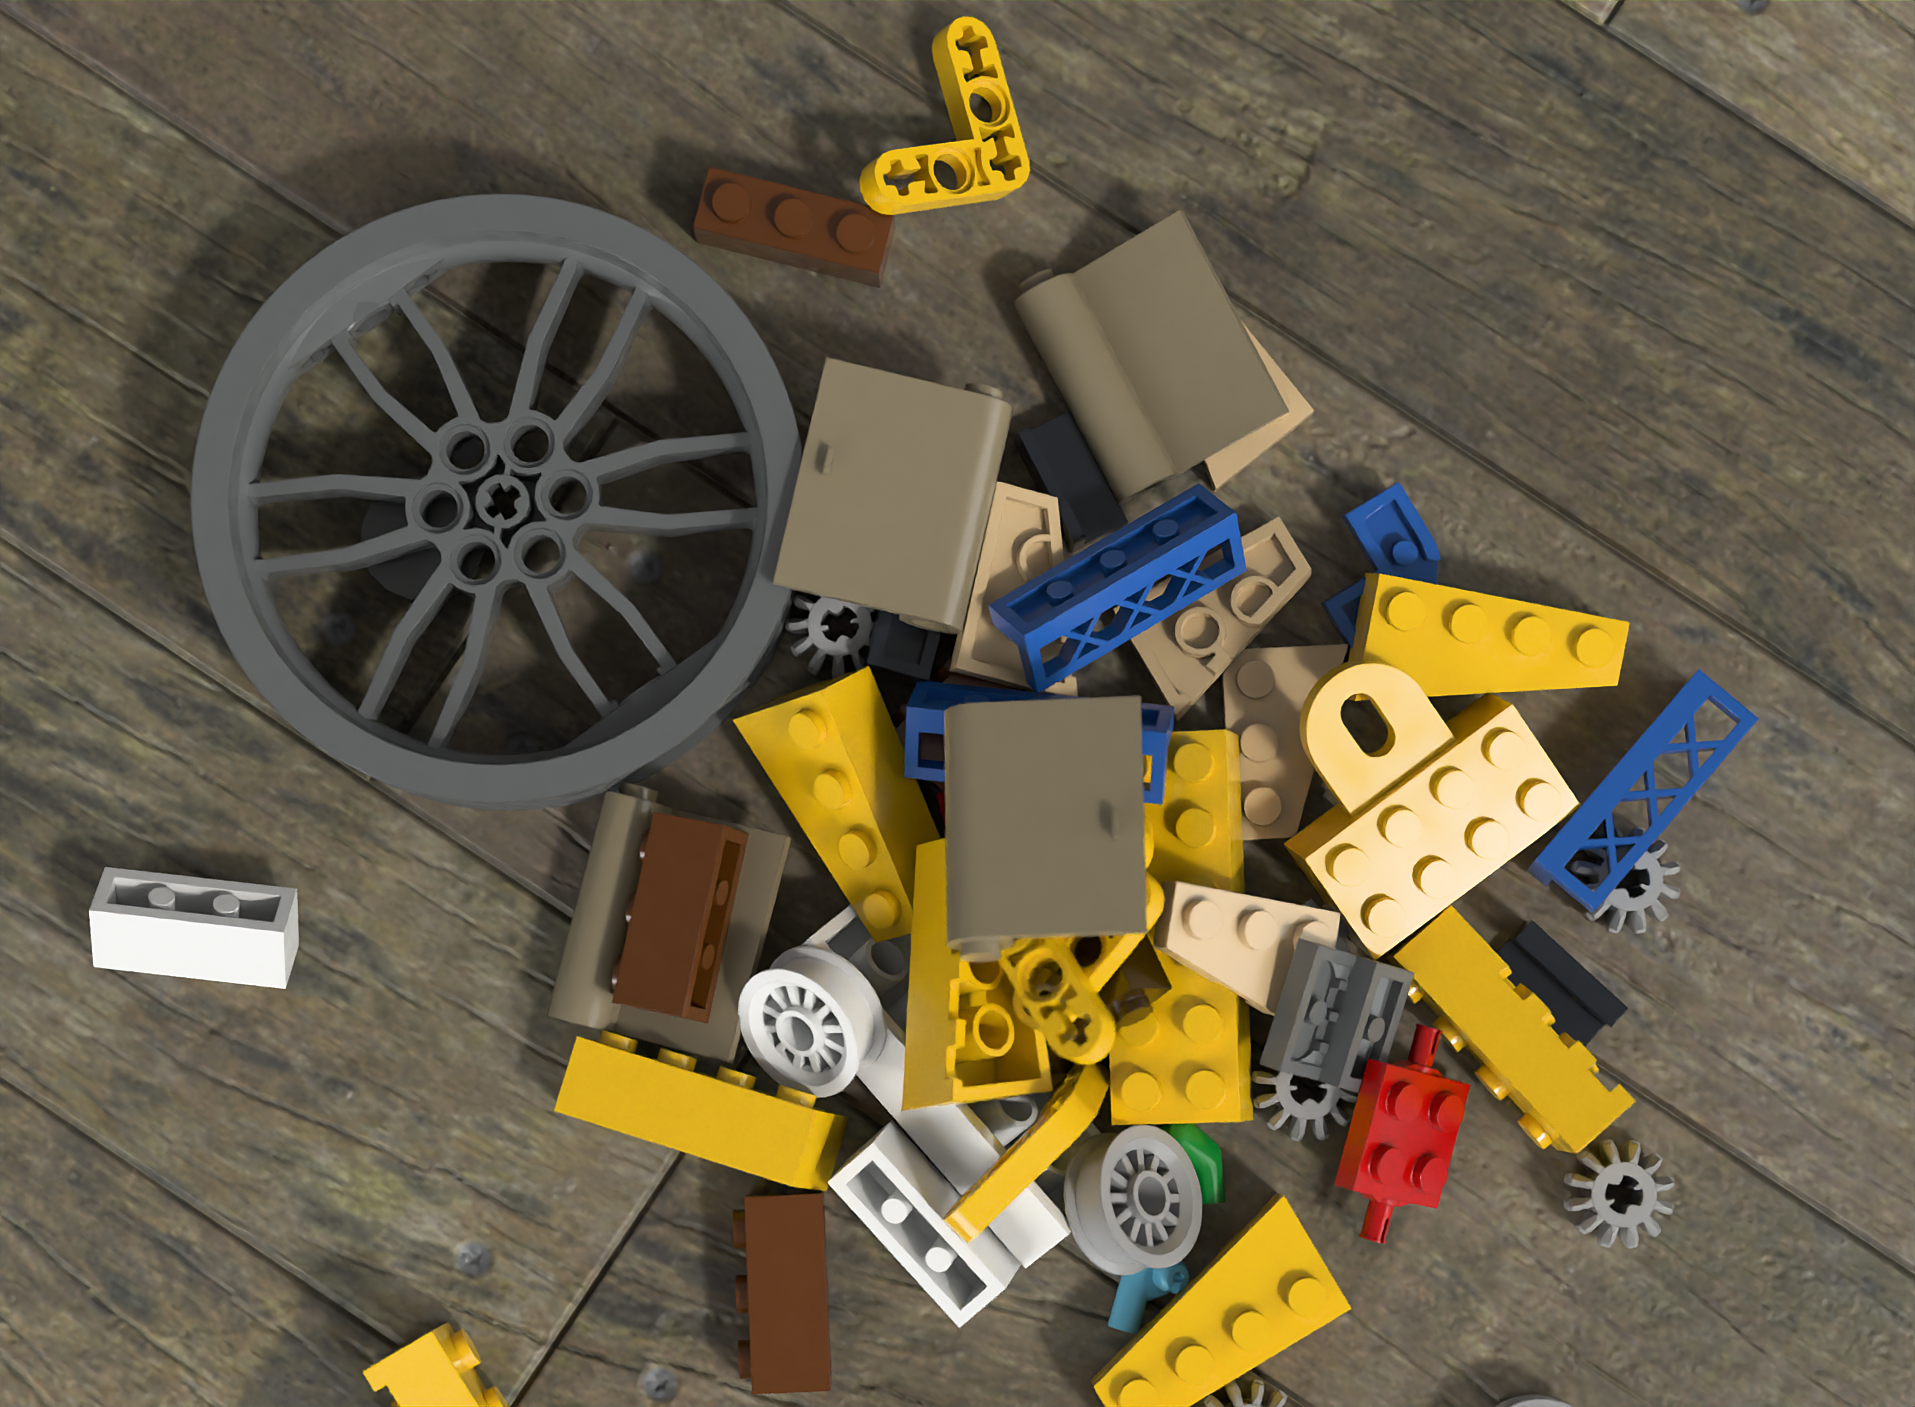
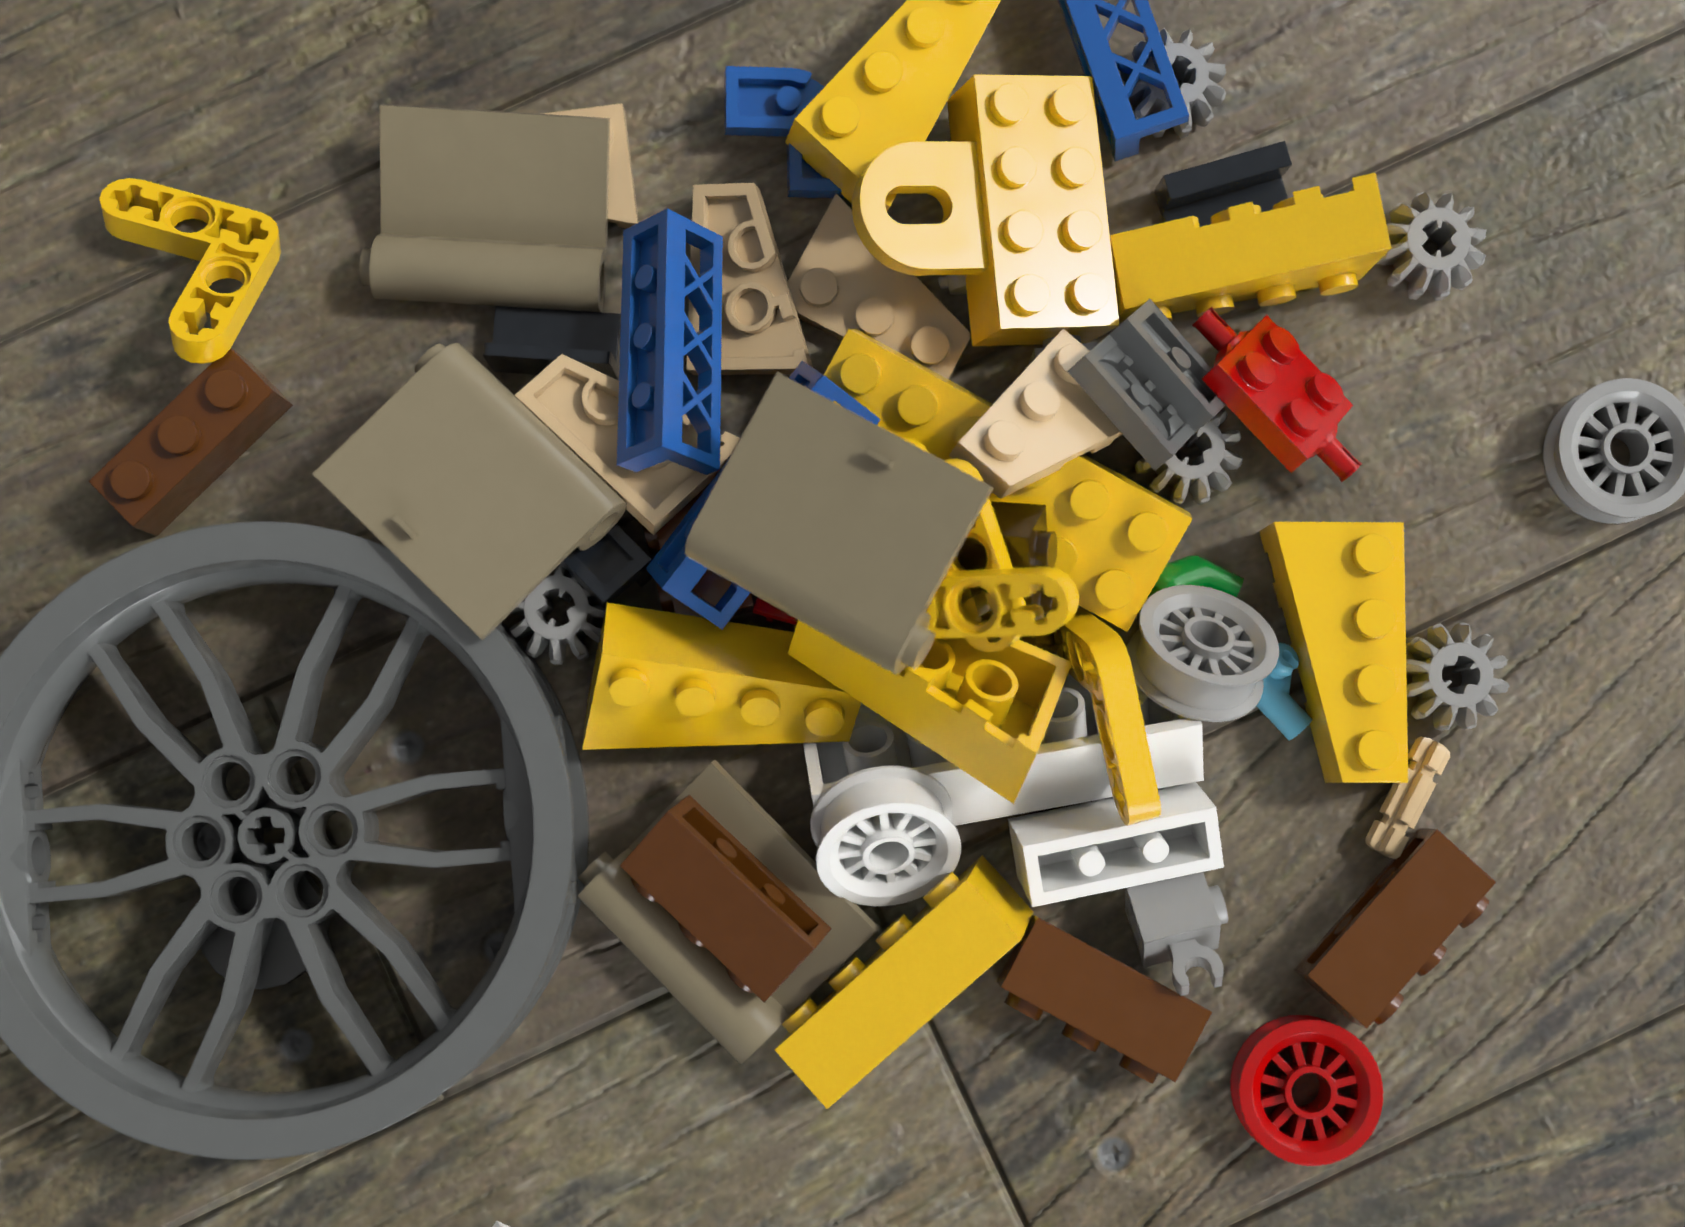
camera: 55 degrees left, 0 degrees up
(887, 1320) = (1178, 924): none -> light grey brick

